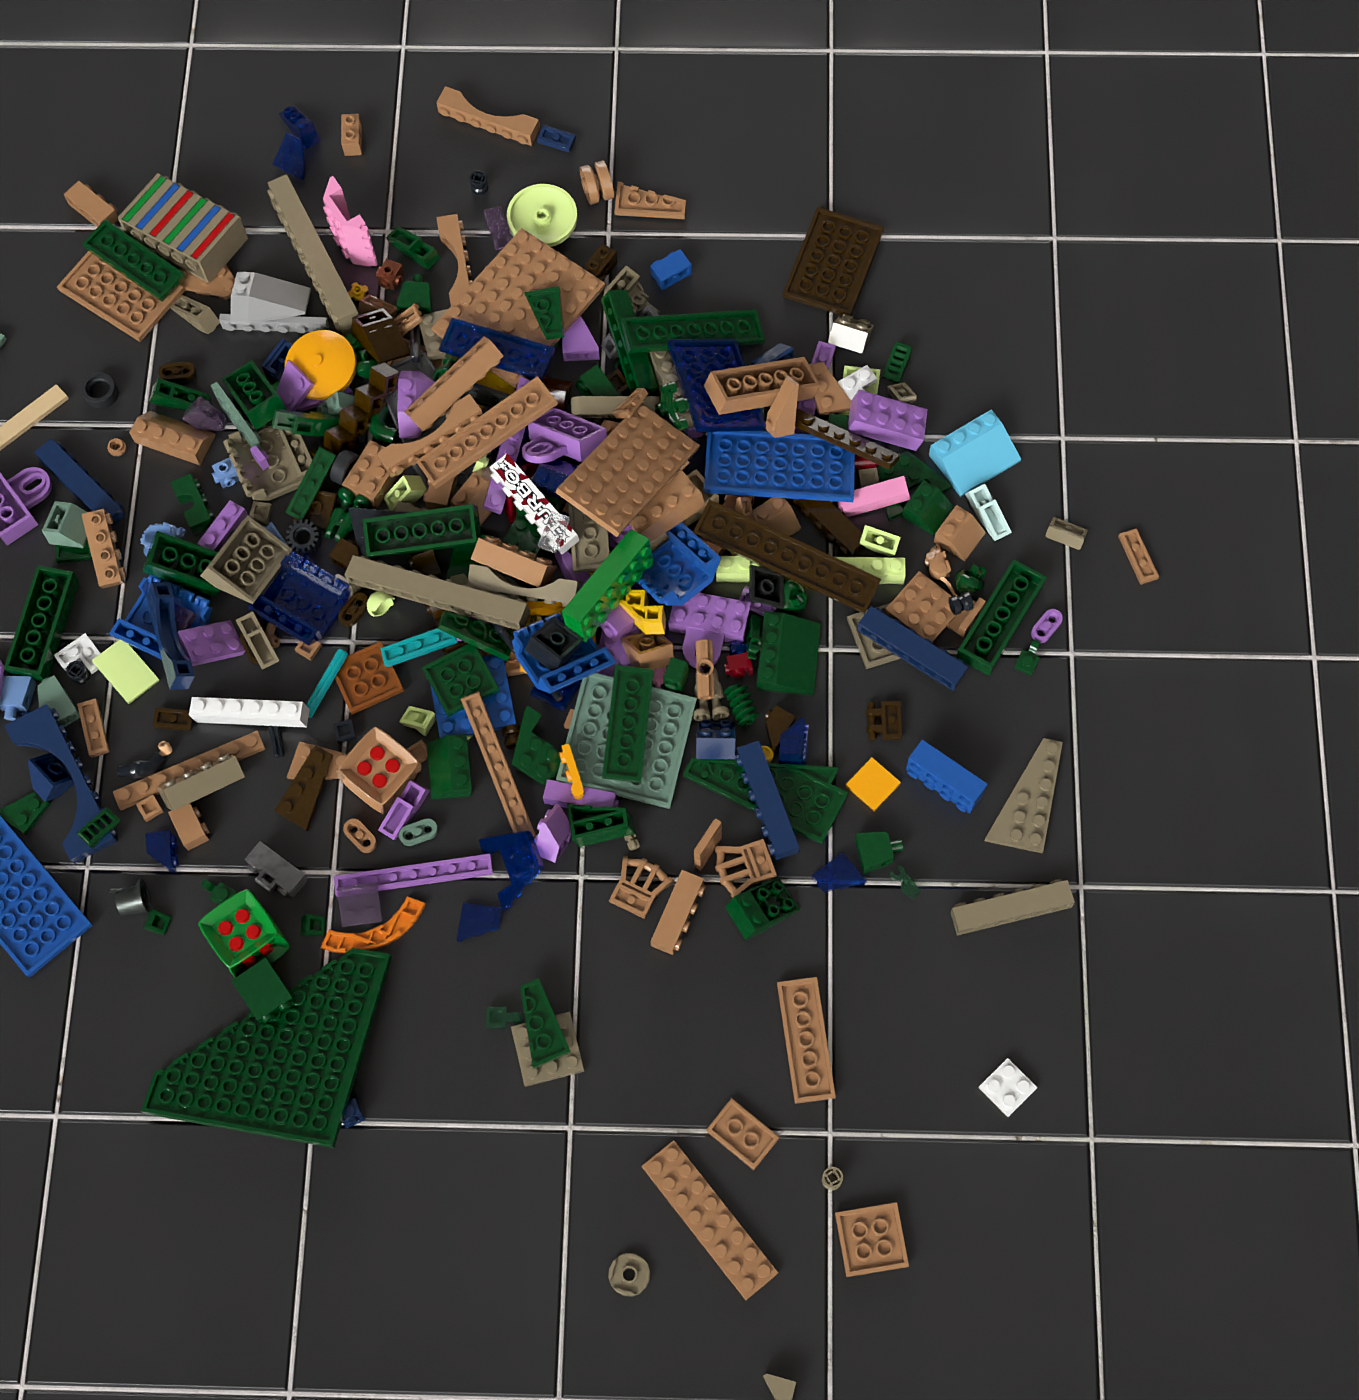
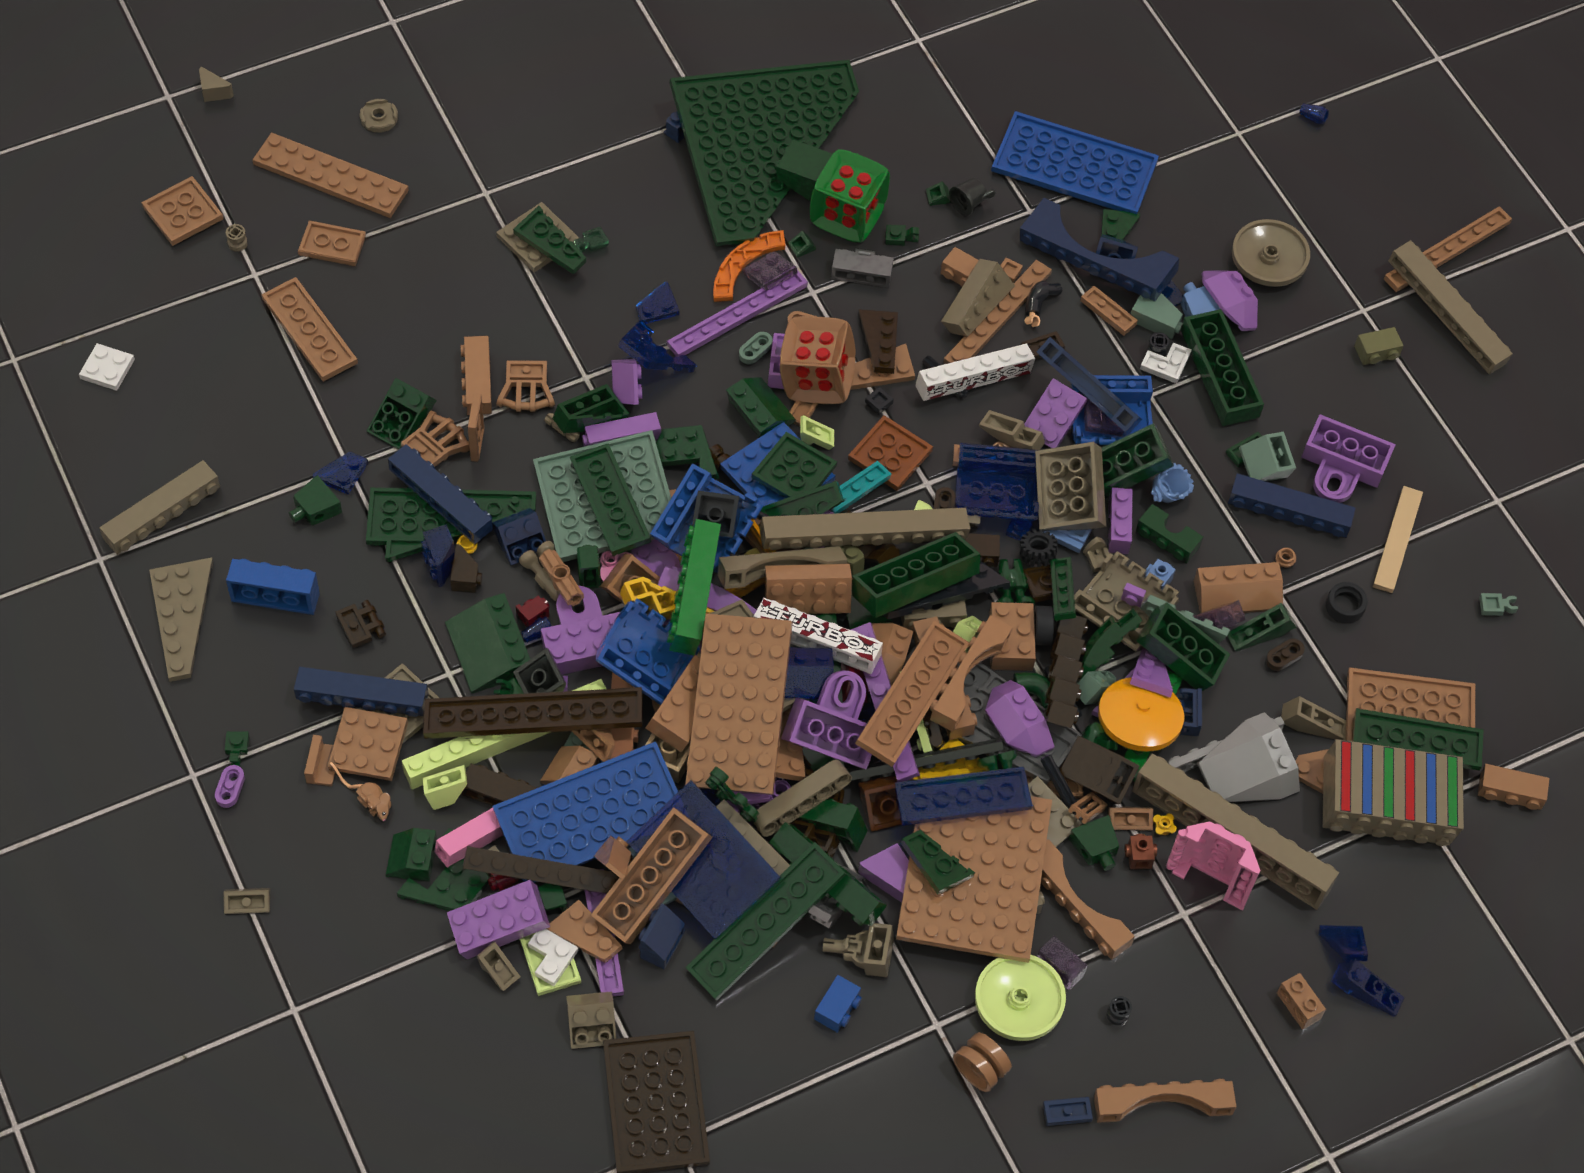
camera: 145 degrees right, 10 degrees down
(103, 548) = (1217, 449): medium nougat brick -> none
(103, 832) = (1040, 212): dark green slope -> none
(125, 670) = (1116, 360): yellowish green tile -> none
(161, 848) = (972, 241): clear blue slope -> none
(326, 681) = (924, 428): teal axle -> none
(413, 247) = (1140, 900): dark green slope -> none
(454, 384) = (980, 729): medium nougat brick -> none
(496, 763) = (714, 418): medium nougat tile -> none
(553, 532) = (777, 603): clear tile -> none
(572, 773) = (638, 435): light orange hinge -> none
(601, 262) = (920, 969): dark brown brick -> none
(630, 404) = (781, 788): medium nougat wing -> none
(640, 203) = (916, 1075): medium nougat wing -> none
(741, 706) = (510, 576): dark green piece -> none
(753, 636) = (528, 631): dark green plate -> none
(873, 784) = (345, 563): light orange tile -> none
(900, 351) = (522, 1027): dark green slope -> none
(908, 886) = (270, 486): clear green plate -> none
(959, 533) = (365, 842): medium nougat slope -> none
(961, 603) = (326, 754): black wheel -> none
(971, 580) = (331, 793): dark green piece -> none
(974, 453) = (386, 940): medium azure slope -> none
(988, 512) = (343, 880): light aqua slope -> none
(1001, 617) = (280, 768): dark green brick -> none
(1138, 556) = (157, 908): medium nougat tile -> none

